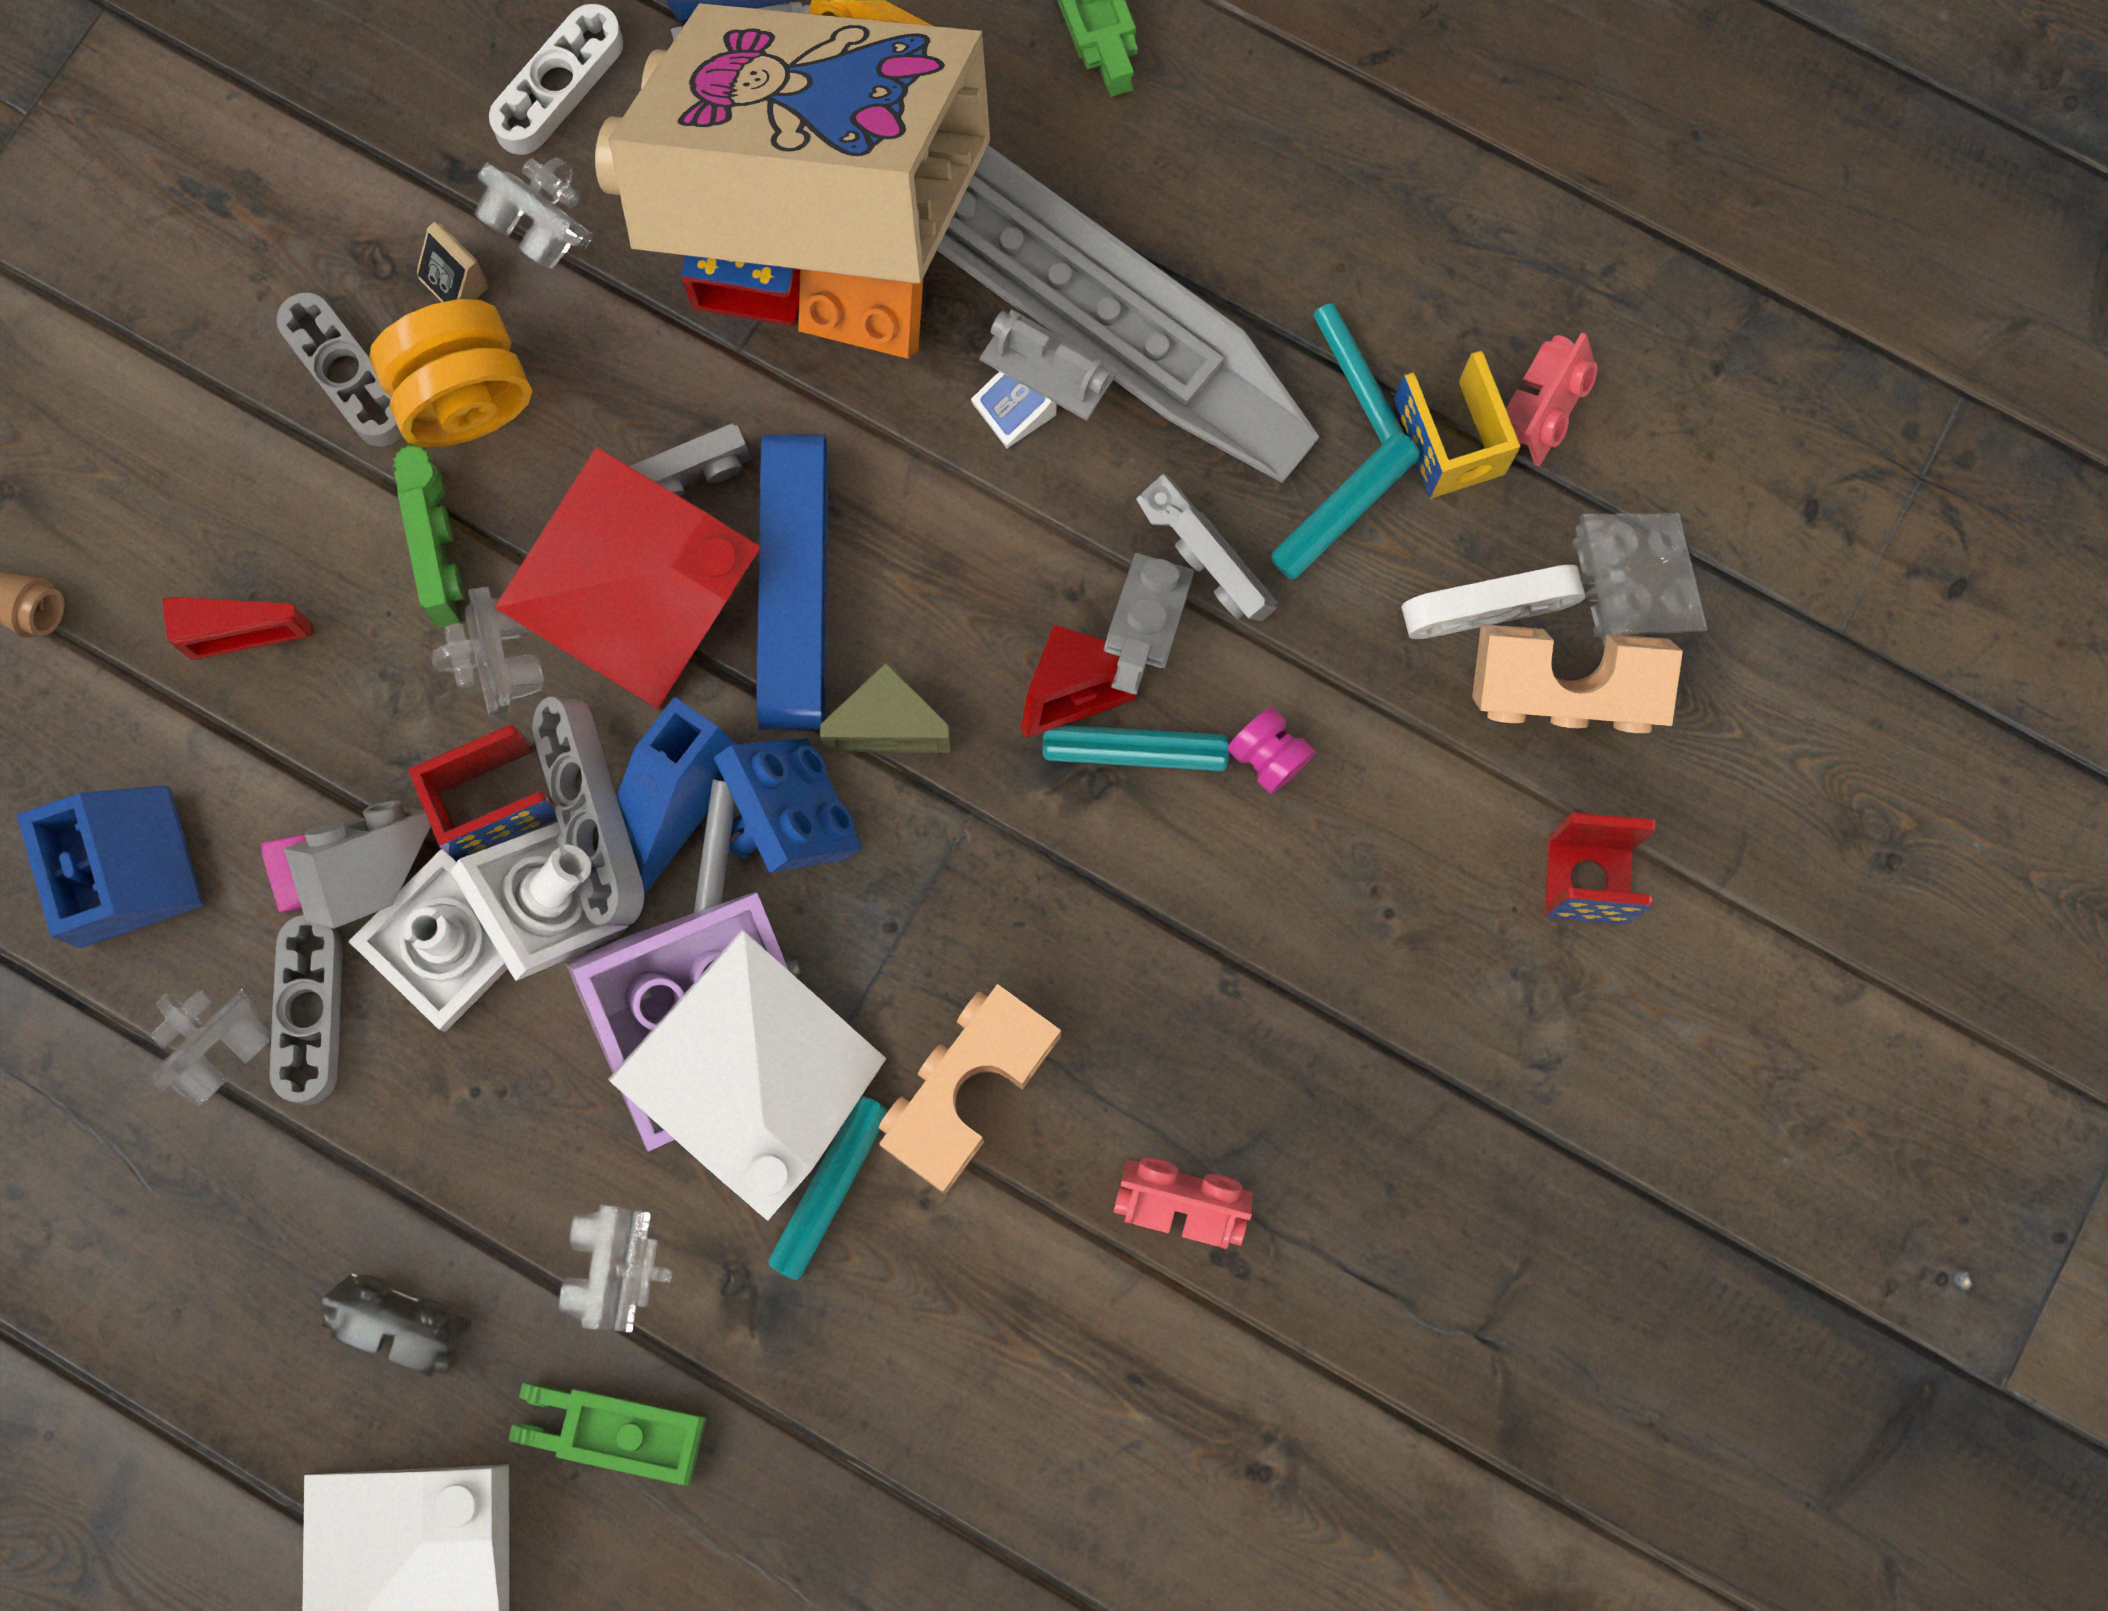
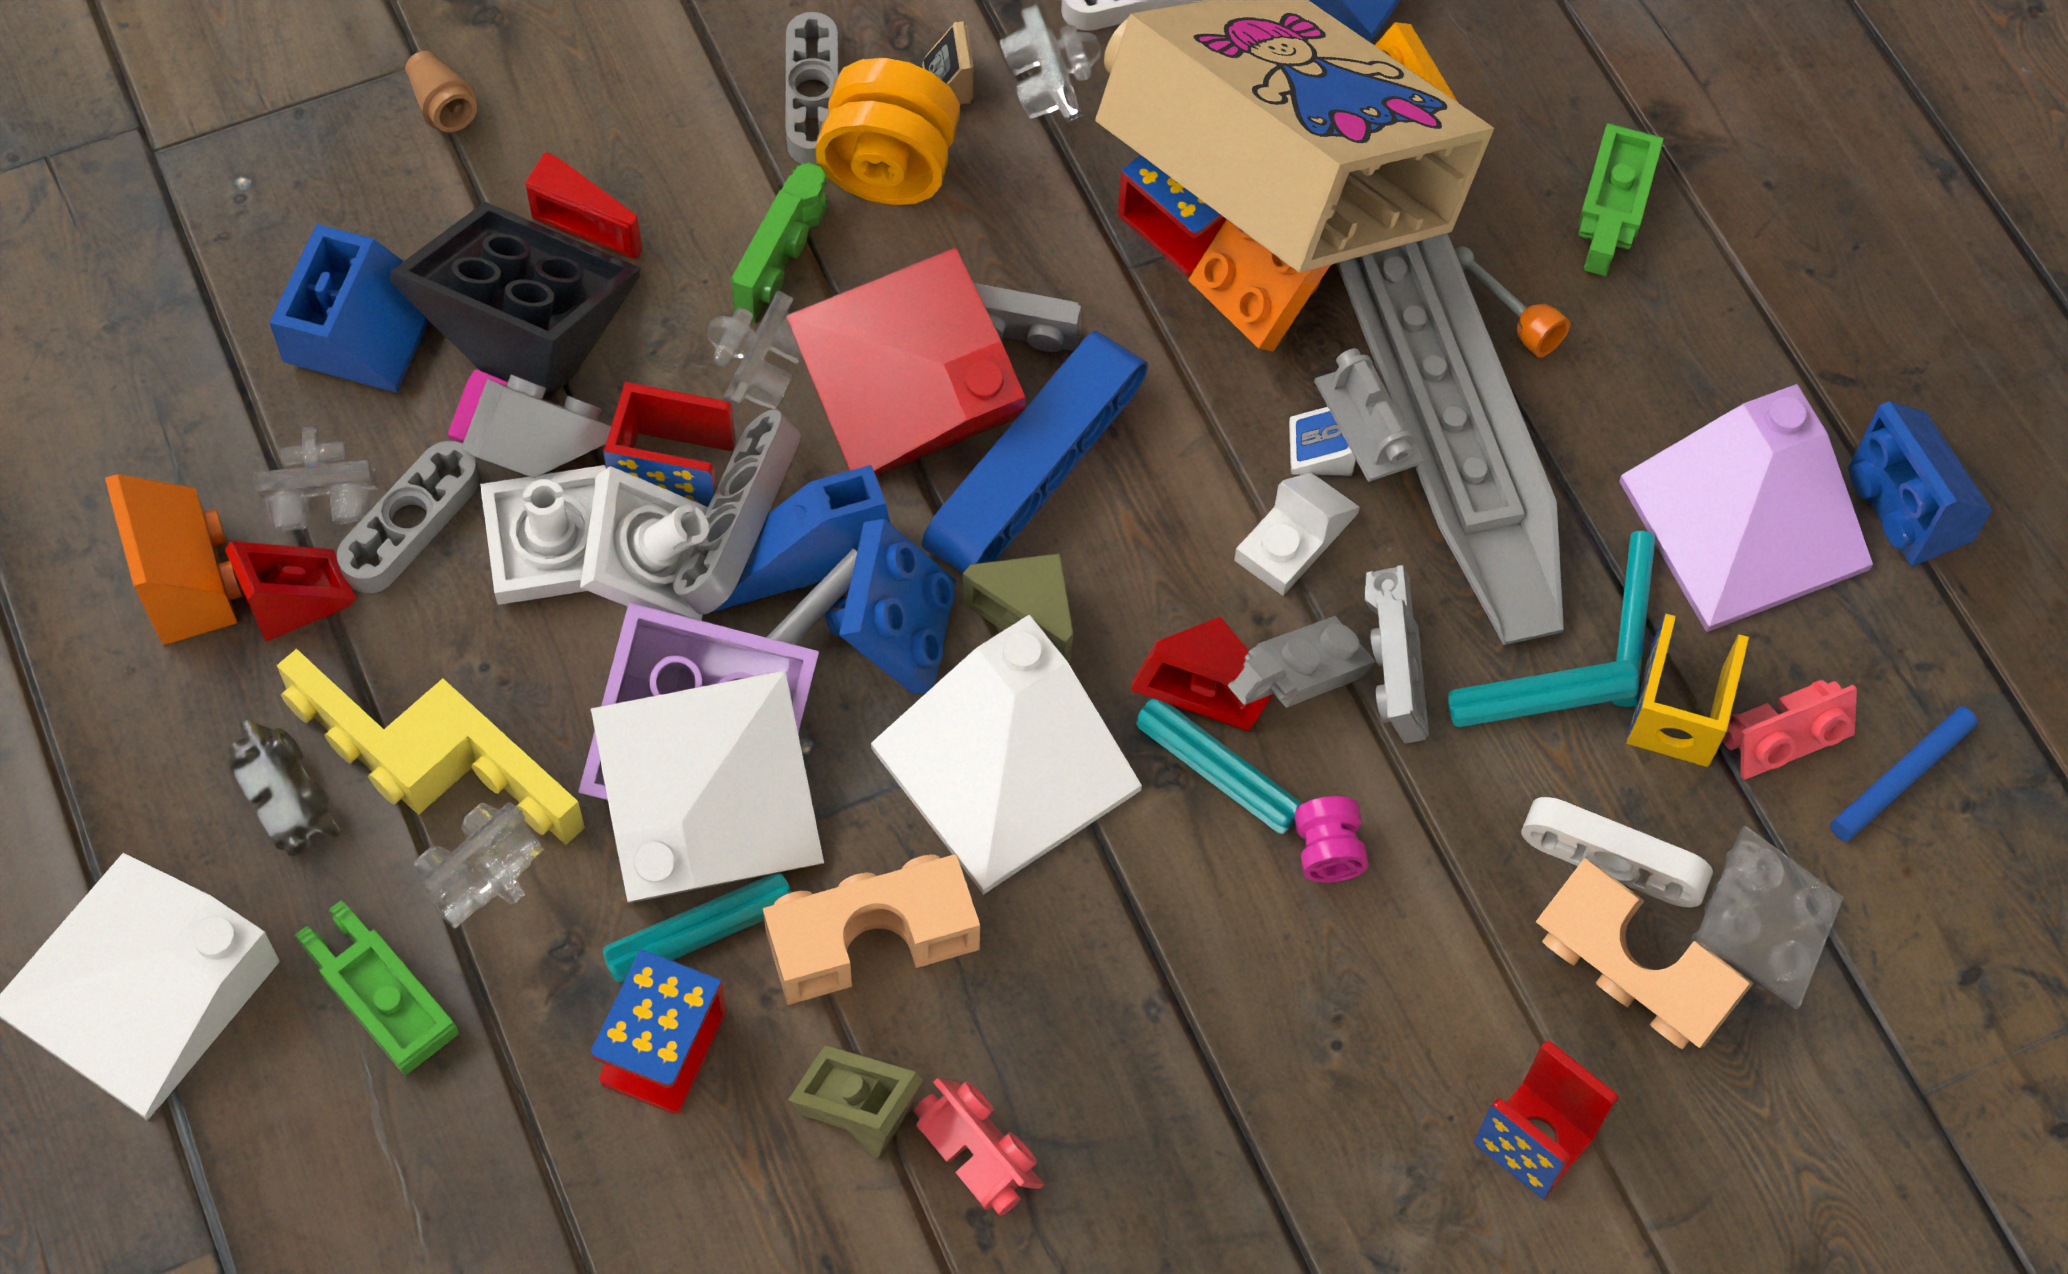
camera: 35 degrees right, 15 degrees down
(137, 1199) = (174, 556): none -> orange slope
(237, 746) = (516, 294): none -> black slope
(255, 1147) = (288, 584): none -> red slope
(490, 1203) = (429, 748): none -> light yellow bracket
(870, 1302) = (659, 1031): none -> piece
(965, 864) = (1007, 755): none -> white slope
(1049, 499) = (1295, 531): none -> white slope
(1065, 1237) = (857, 1096): none -> olive slope
(1113, 175) = (1539, 326): none -> orange hinge
(1392, 228) = (1751, 510): none -> lavender slope
(1509, 118) = (1916, 484): none -> blue slope
(1656, 376) = (1903, 774): none -> blue bar

